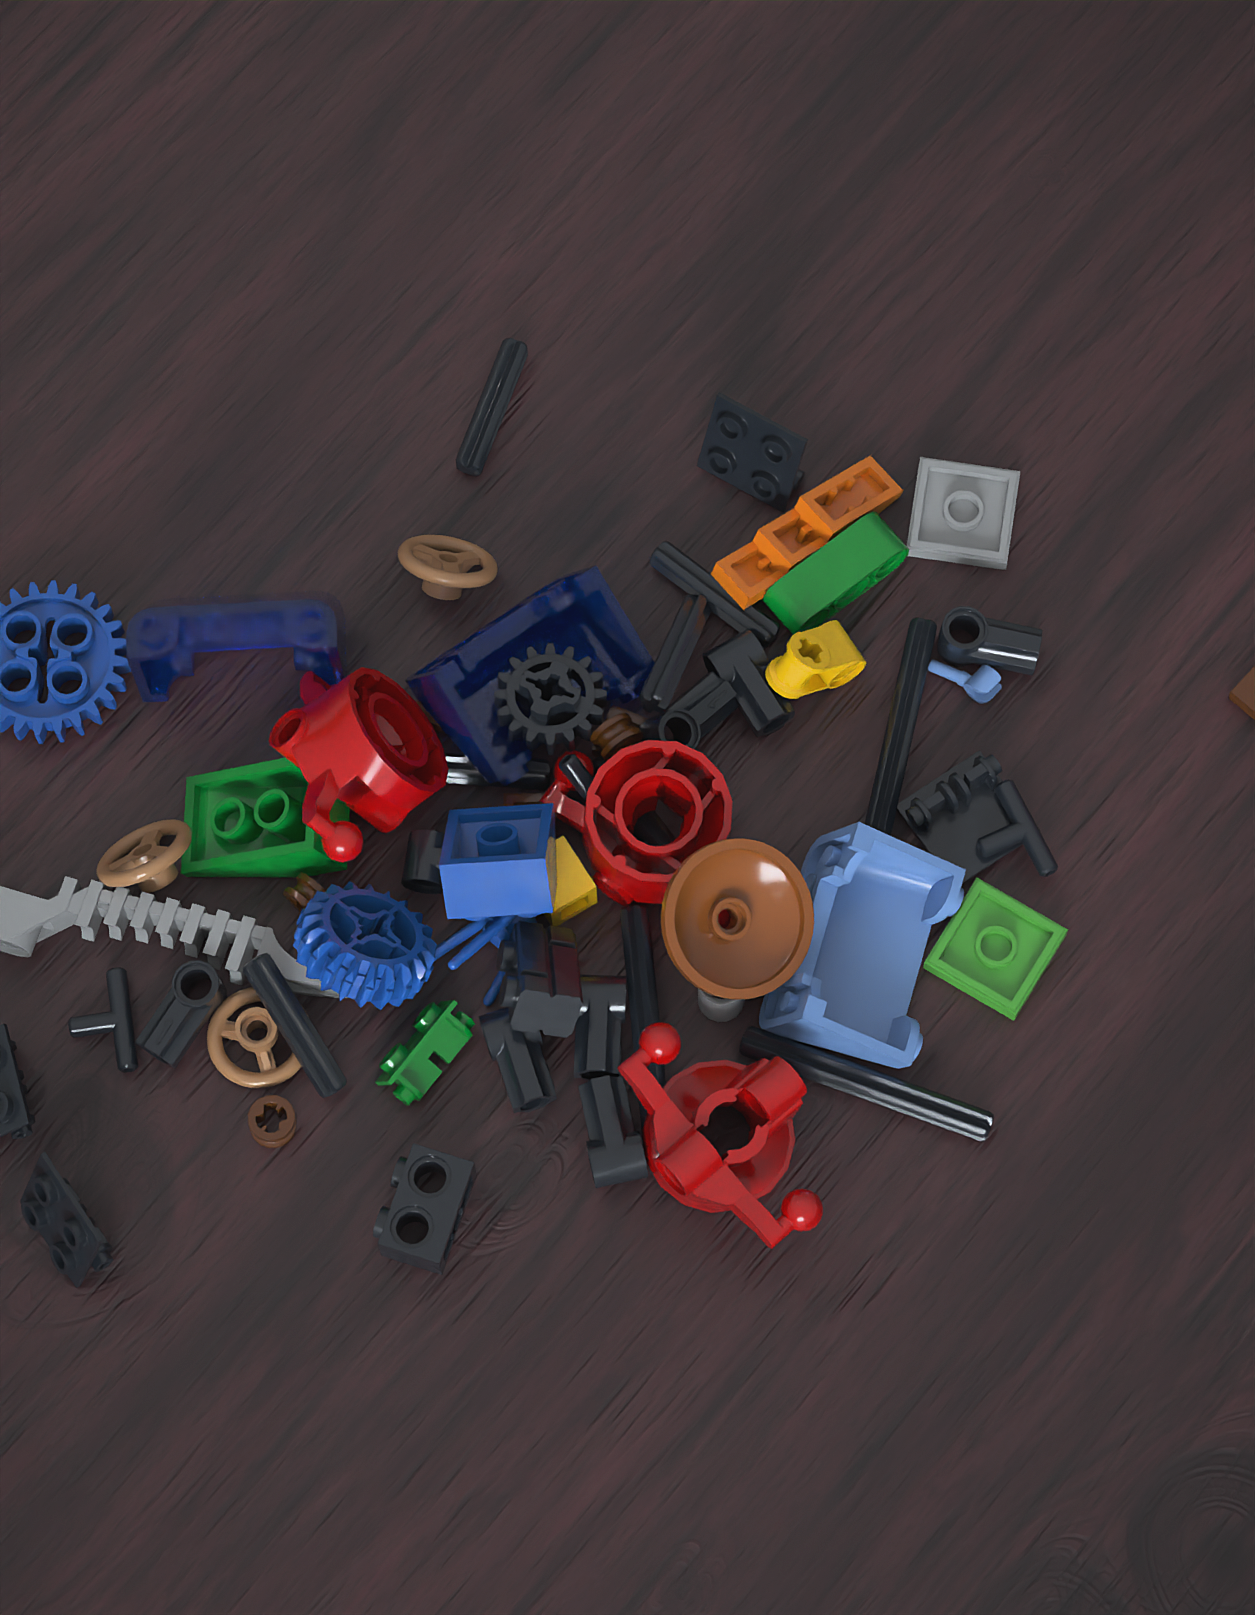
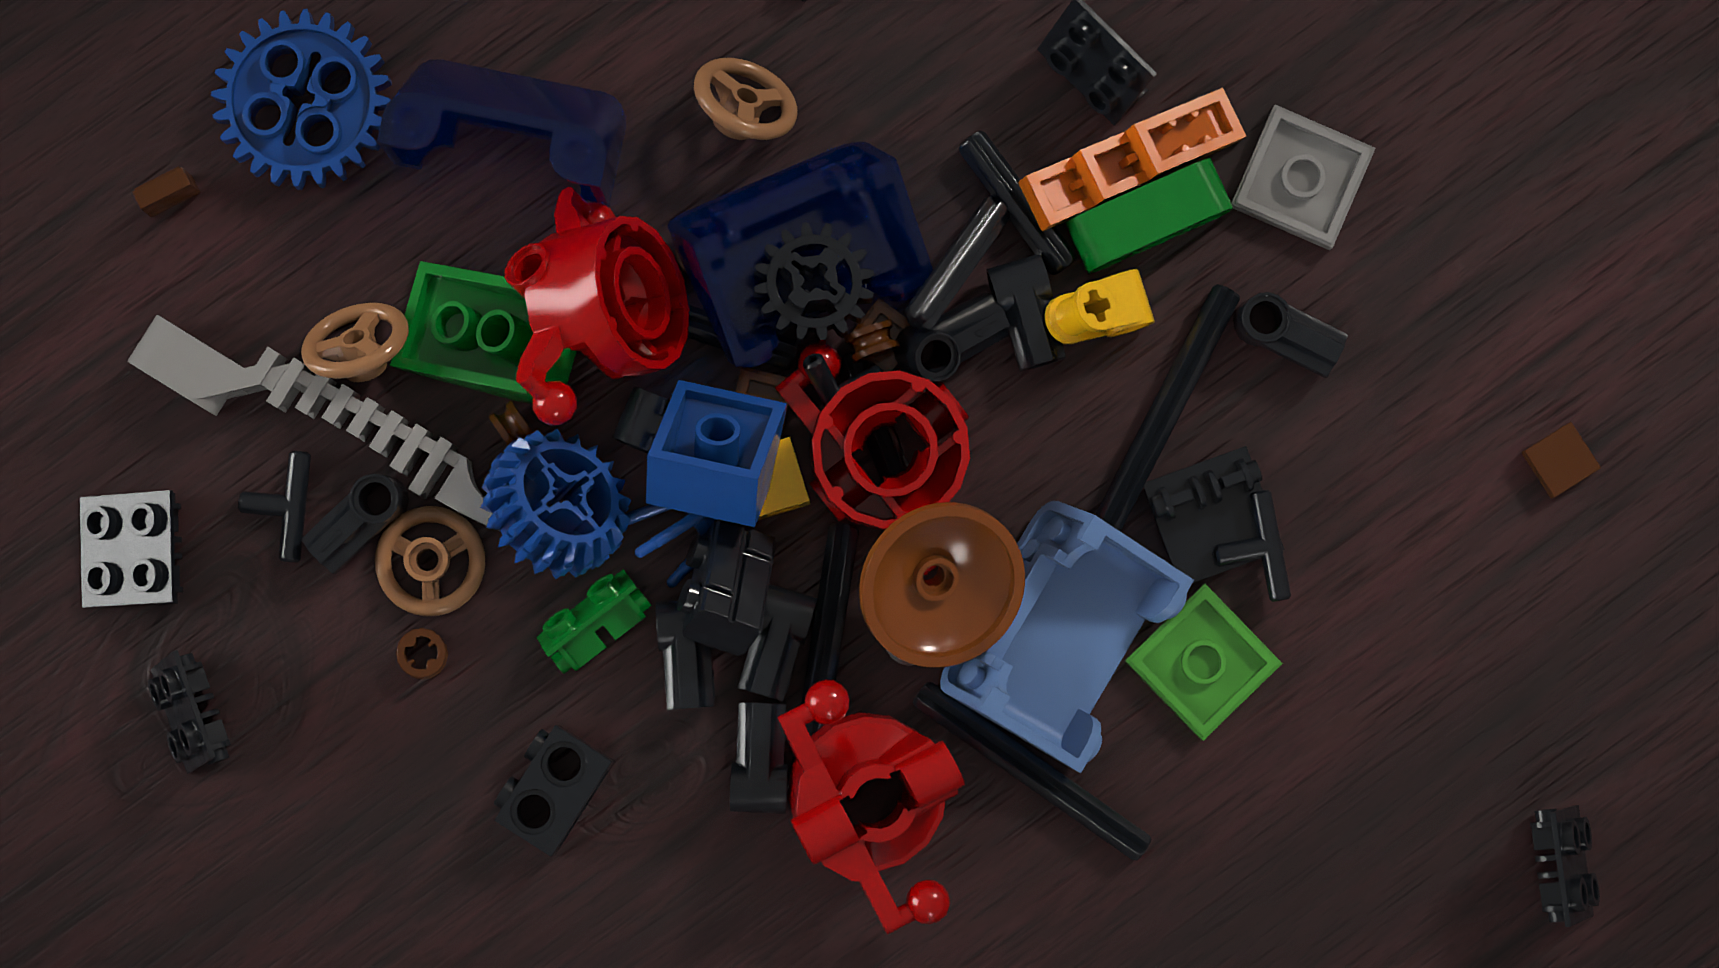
camera: 10 degrees right, 15 degrees up
(294, 1025) = (465, 565): black axle -> none
(980, 686) = (1266, 375): medium blue hand -> none

